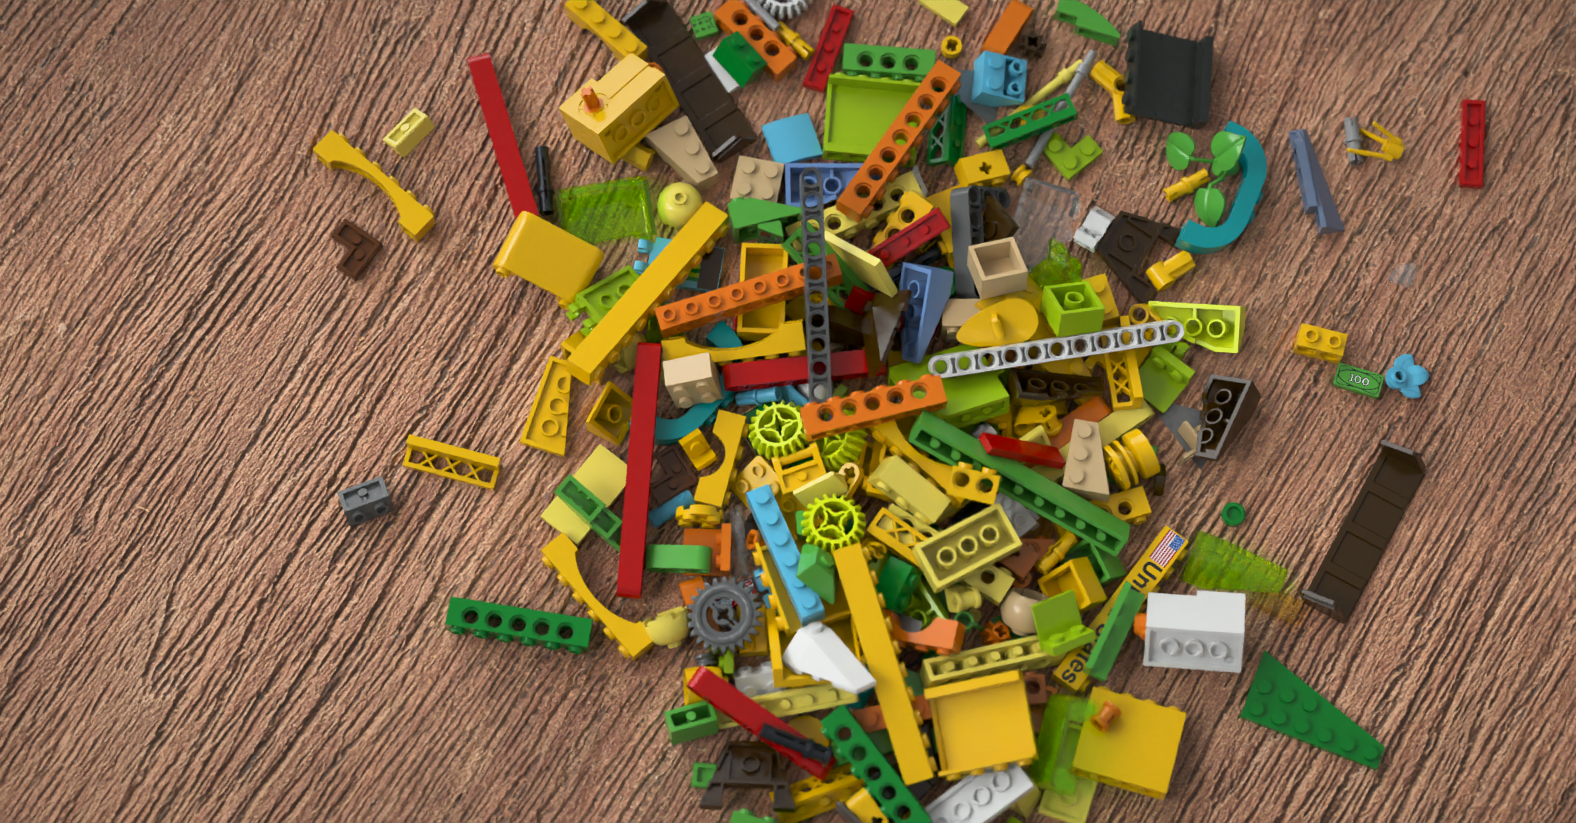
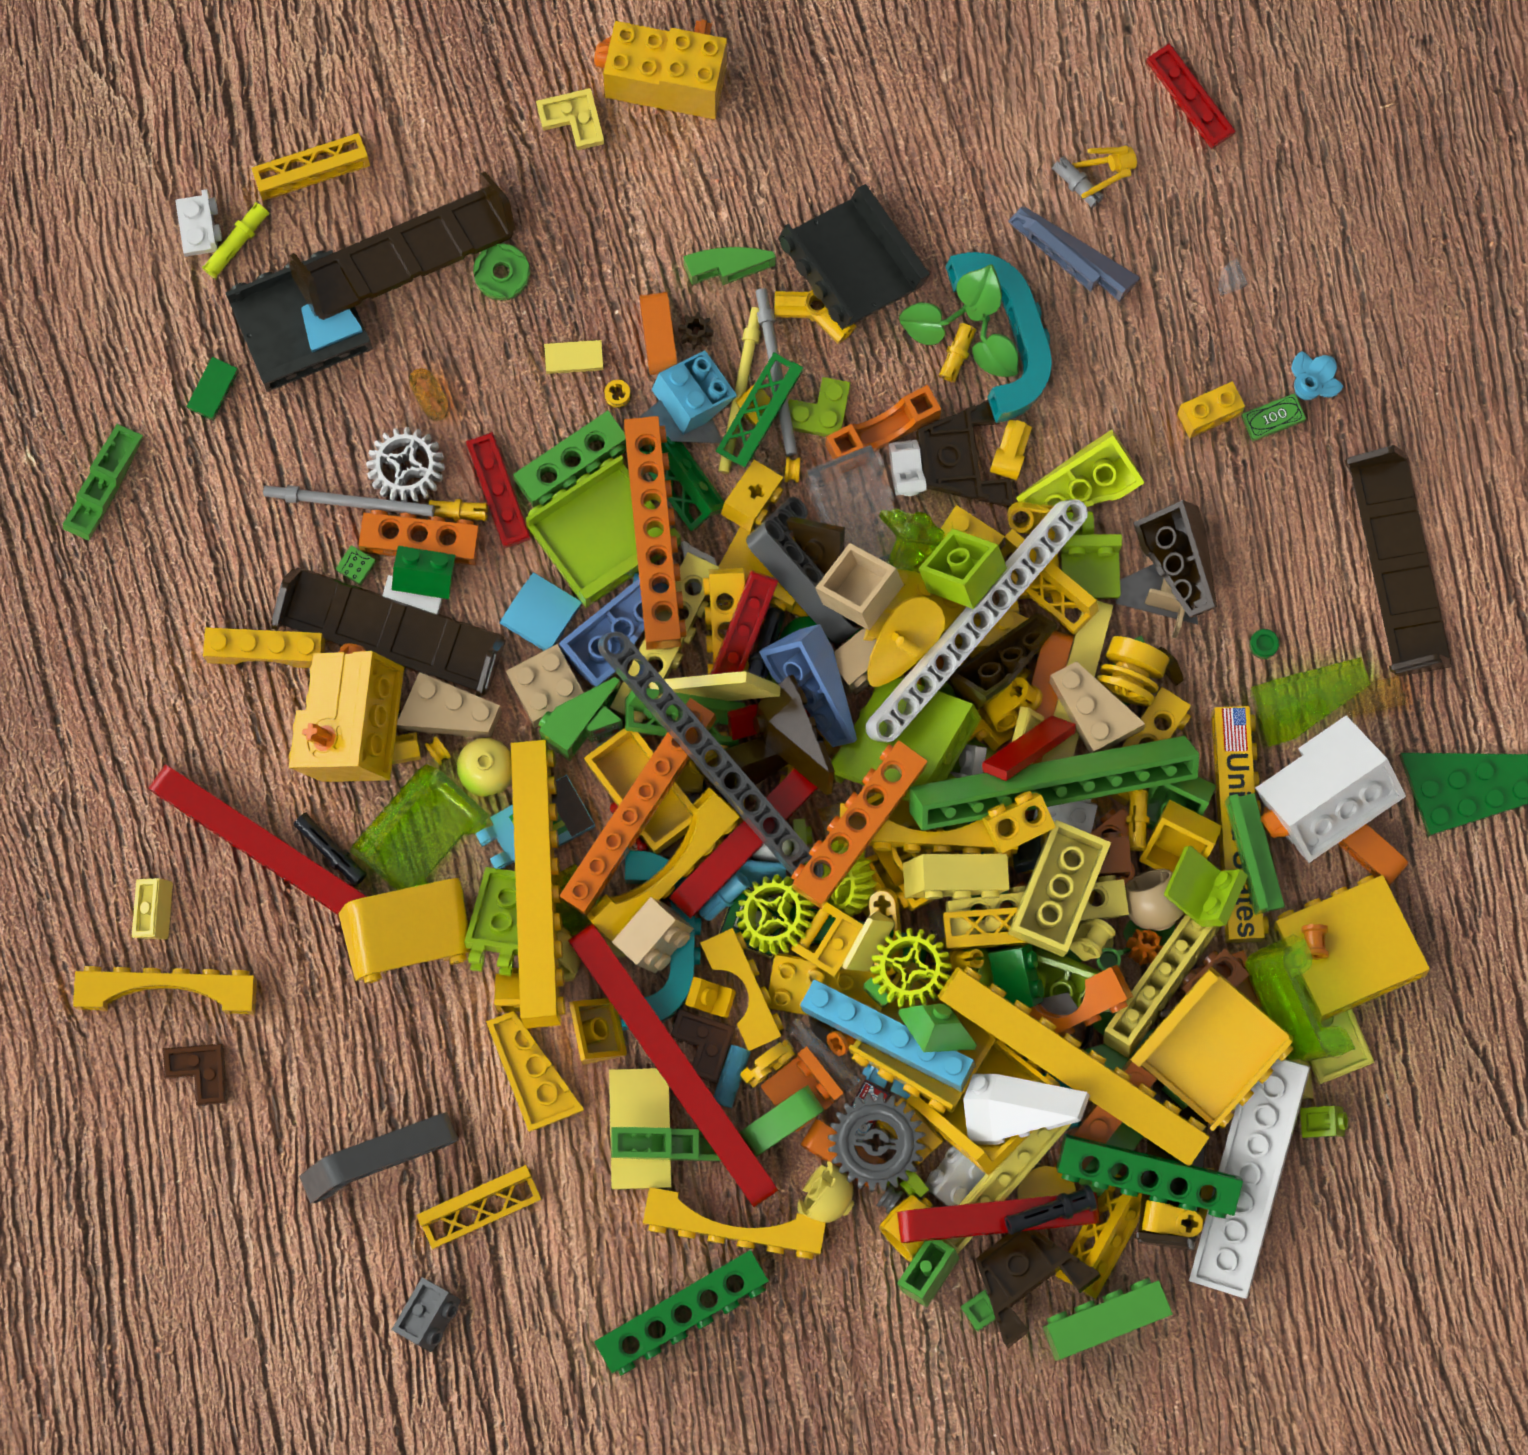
camera: 40 degrees left, 5 degrees up
(389, 367) = (376, 1155): none -> dark grey beam
(658, 172) = (437, 750): none -> yellow bush
(1119, 197) = (900, 420): none -> orange arch
(1193, 696) = (1374, 853): none -> orange beam

